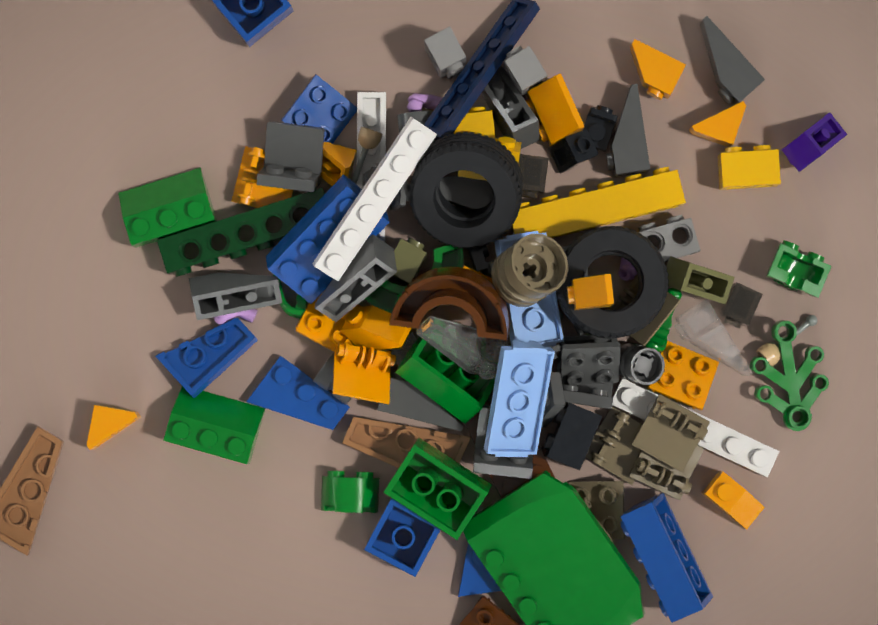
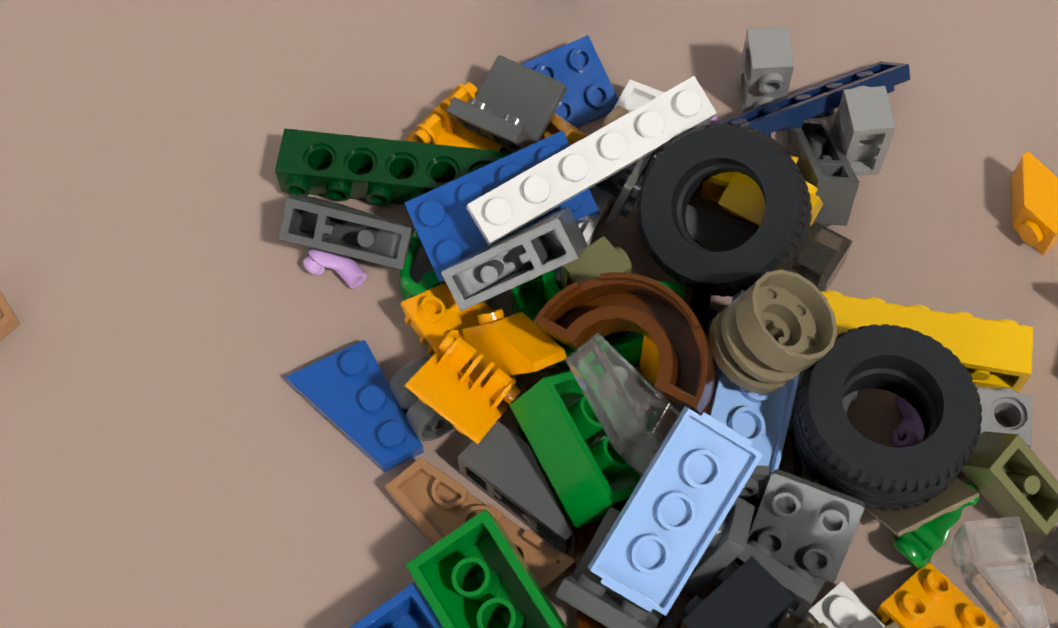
camera: 25 degrees right, 25 degrees down
(107, 423) = (86, 323): light orange slope -> none
(166, 207) = (316, 108): green slope -> none
(207, 357) = (262, 301): blue wing -> none
(215, 425) = (223, 388): green slope -> none
(350, 493) = (361, 562): green cylinder -> none
(554, 110) = (887, 193): light orange slope -> none
(573, 150) = (885, 251): black bracket -> none
(591, 292) = (859, 386): light orange slope -> none
(600, 126) = (934, 244): black bracket -> none
(629, 146) = (974, 271): dark grey slope -> none
(640, 364) = (881, 564): dark grey wheel -> none

